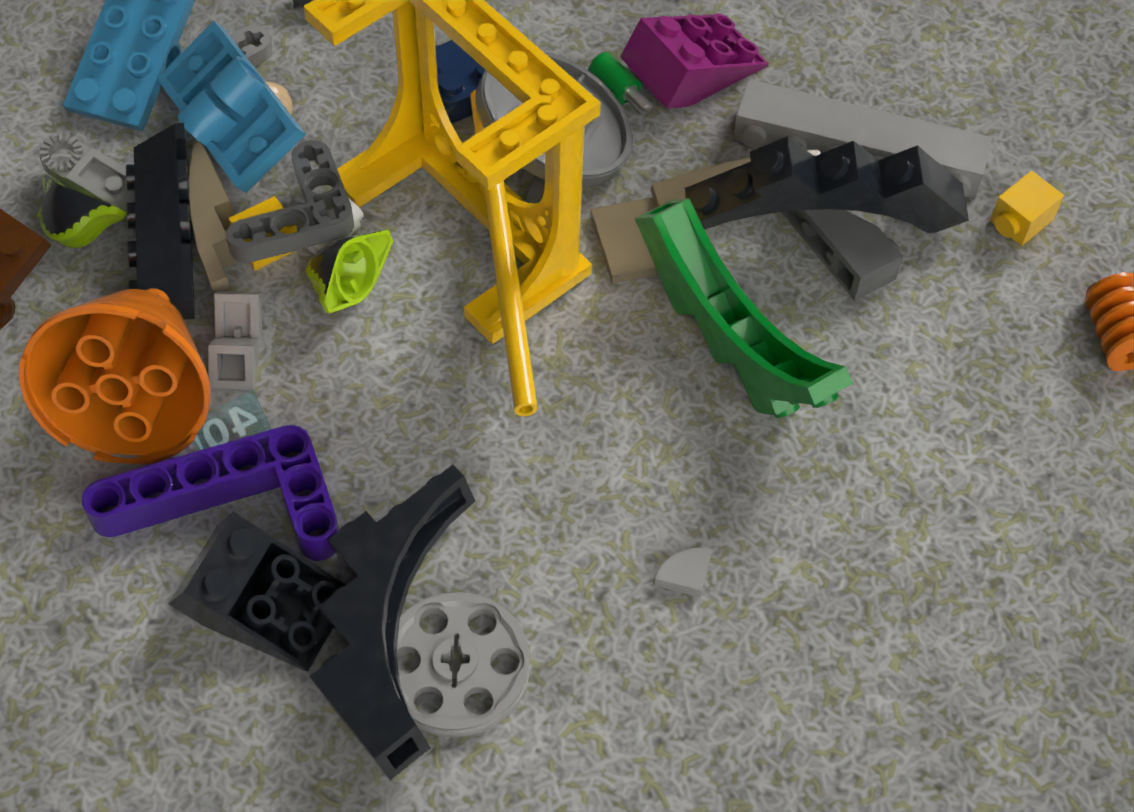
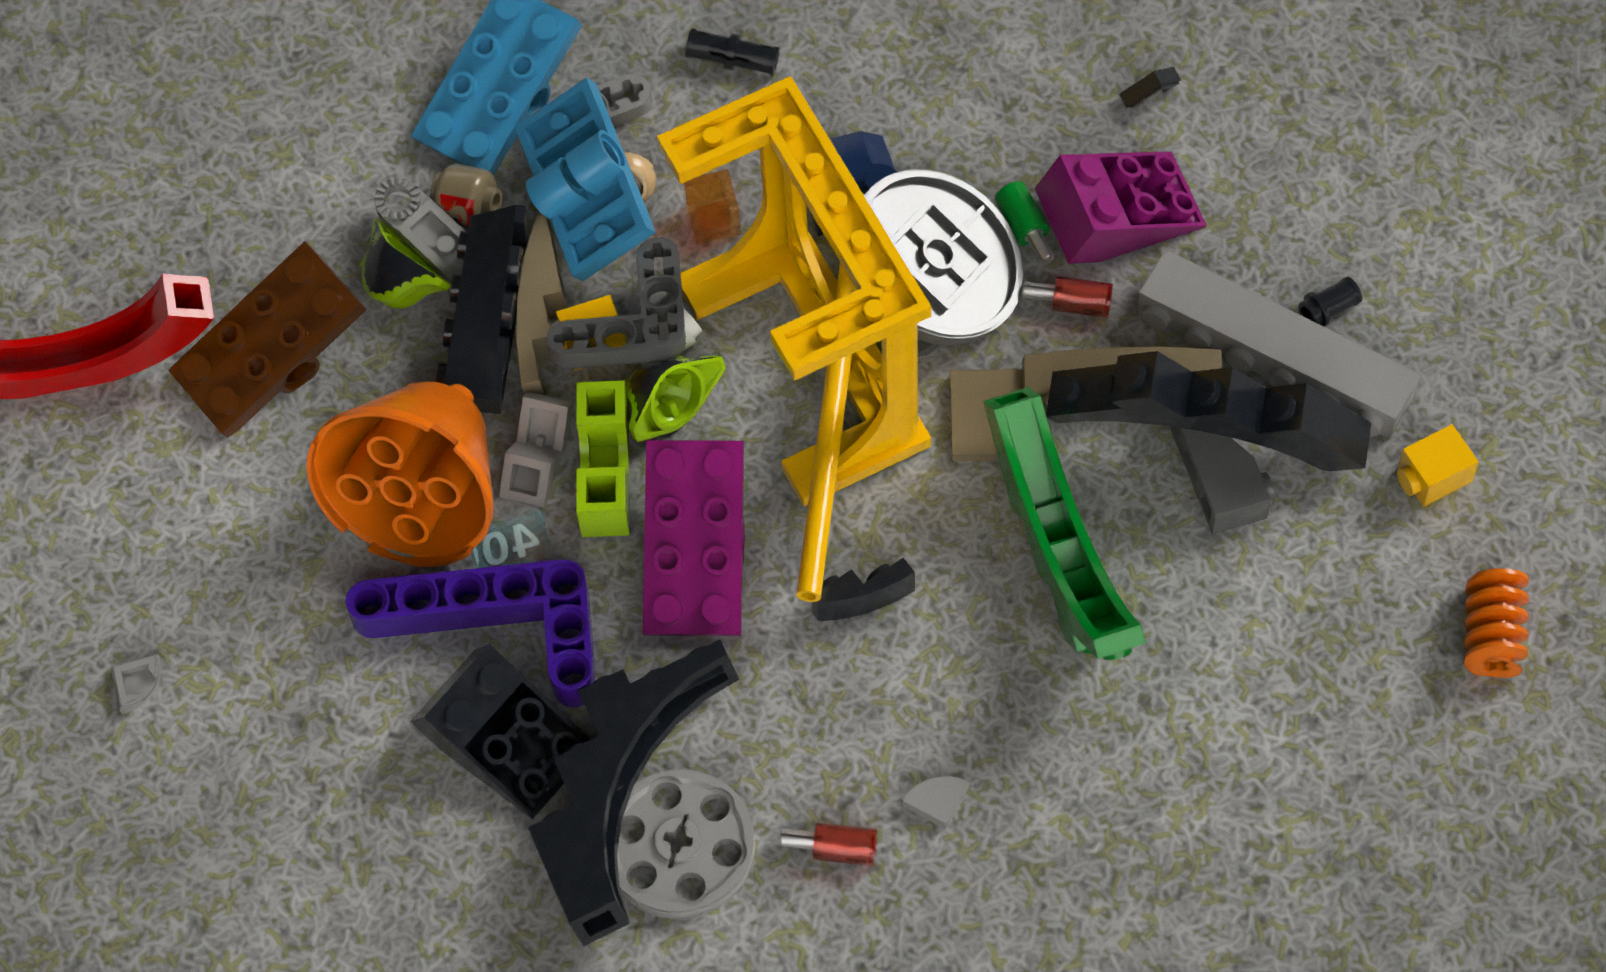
camera: 20 degrees right, 5 degrees up
(118, 135) = (465, 192): none -> dark tan head
(301, 334) = (604, 459): none -> lime arch
(347, 114) = (712, 207): none -> clear orange panel
(402, 386) = (693, 538): none -> magenta plate
(562, 408) = (849, 597): none -> black slope
(605, 630) = (835, 843): none -> clear red piece
(678, 132) = (1073, 295): none -> clear red piece
(895, 97) = (1330, 301): none -> black pin

